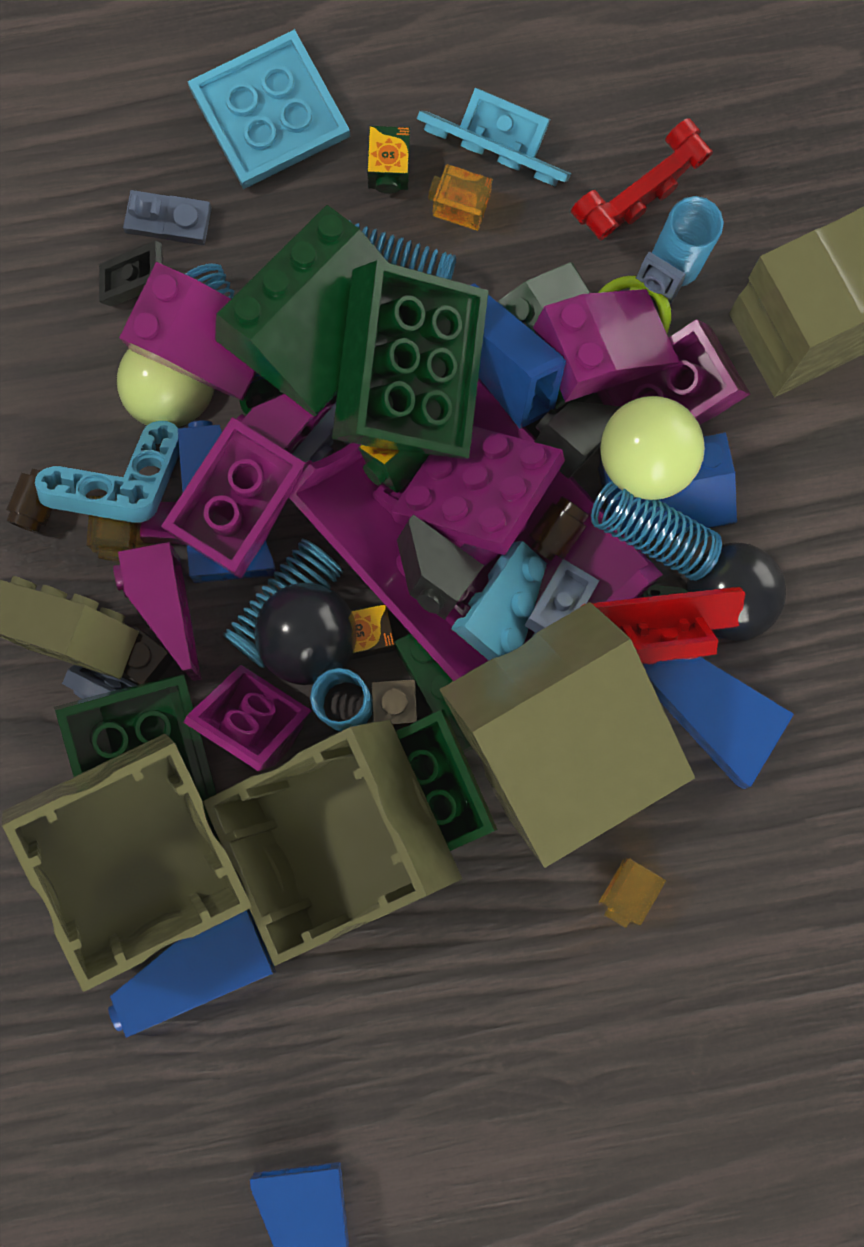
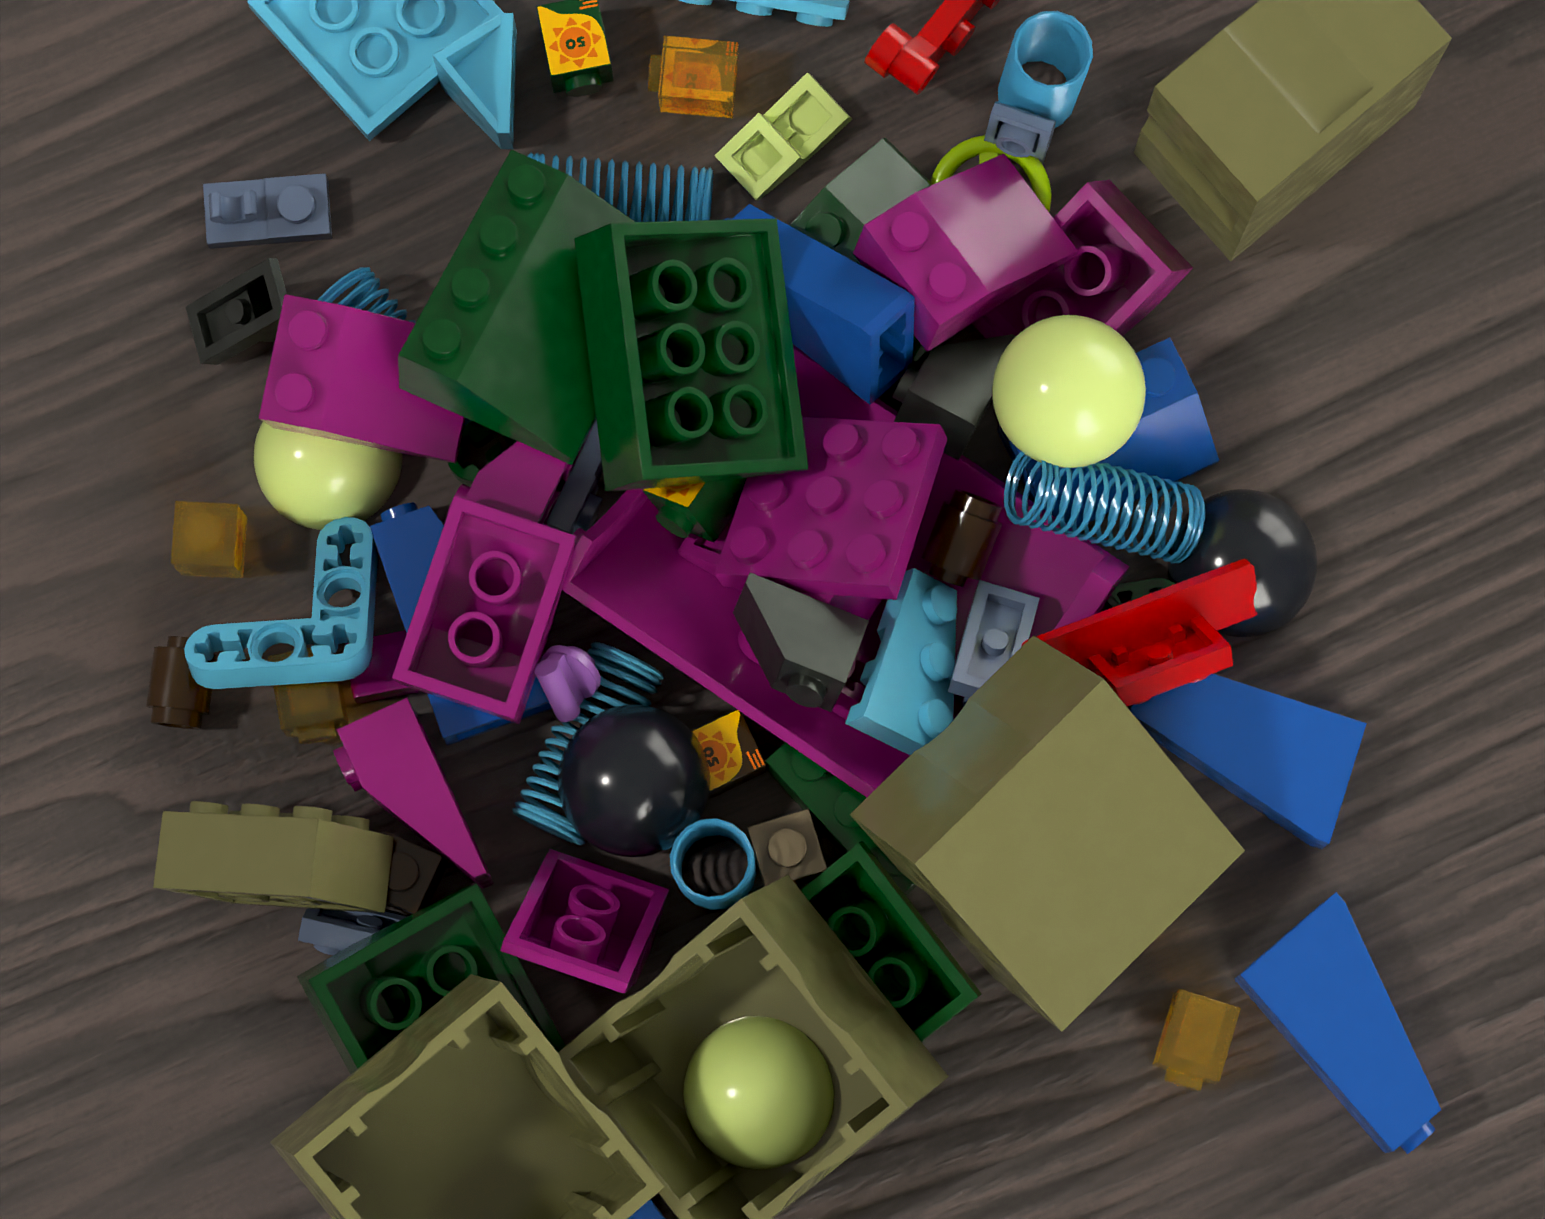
camera: 10 degrees left, 0 degrees up
(74, 413) = (209, 539): none -> clear yellow brick
(277, 556) = (567, 679): none -> medium lavender plate
(324, 161) = (481, 76): none -> medium azure slope
(335, 857) = (758, 1093): none -> yellowish green piece
(507, 250) = (783, 137): none -> yellowish green slope
(730, 904) = (1341, 1022): none -> blue slope

